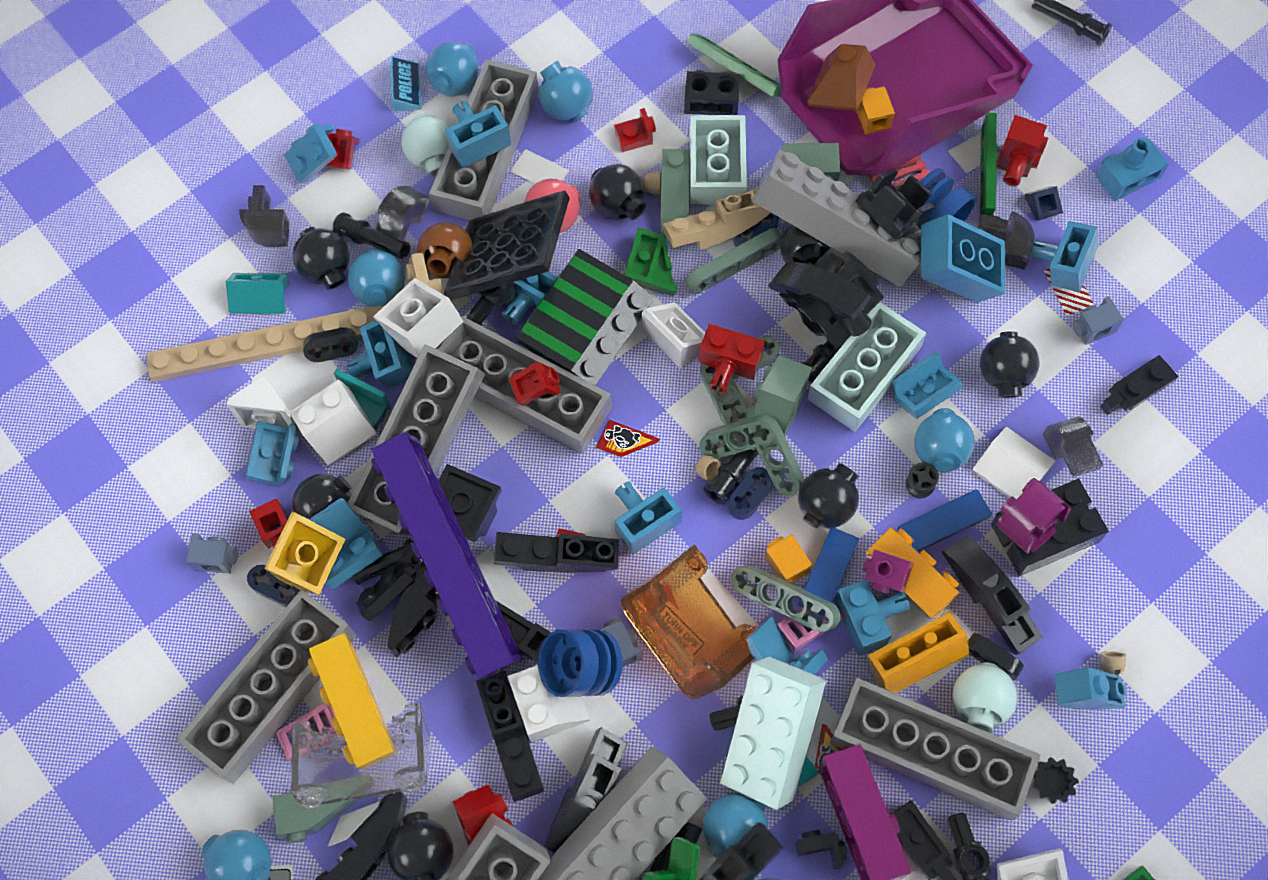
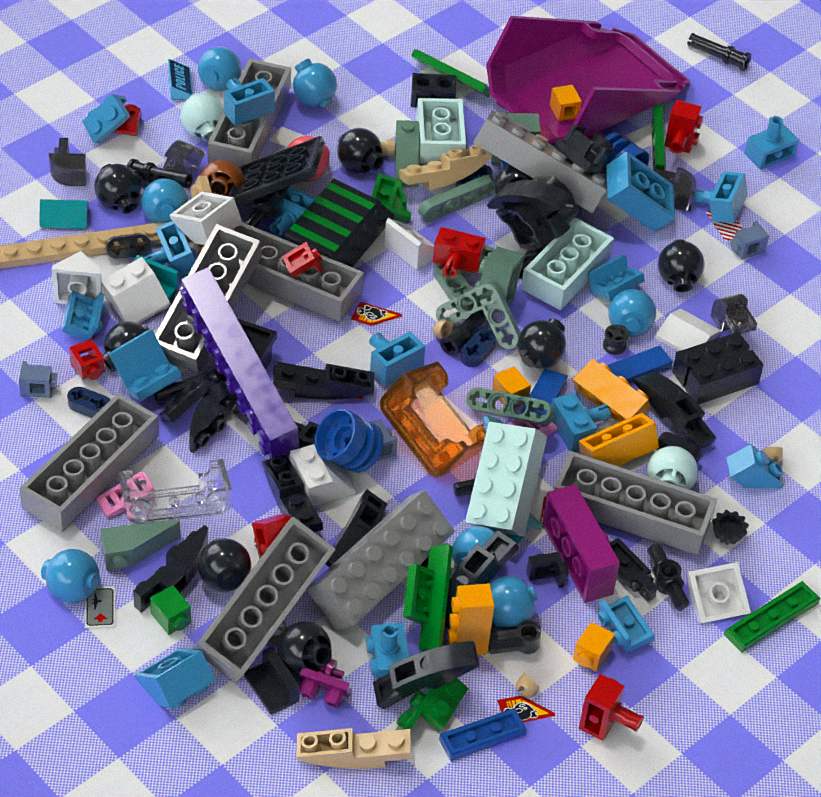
camera: 10 degrees left, 20 degrees down
(304, 554) = (120, 367): yellow slope -> none
(350, 822) = (164, 550): white sticker -> none
(352, 702) = (166, 460): yellow brick -> none
(635, 132) = (372, 116): red bracket -> none
(843, 78) = (539, 77): dark orange slope -> none
(887, 571) = (591, 384): magenta brick -> none
(1032, 516) = (702, 342): magenta brick -> none
(1044, 202) = (704, 167): dark blue slope -> none
(1139, 385) = (784, 284): black hinge -> none

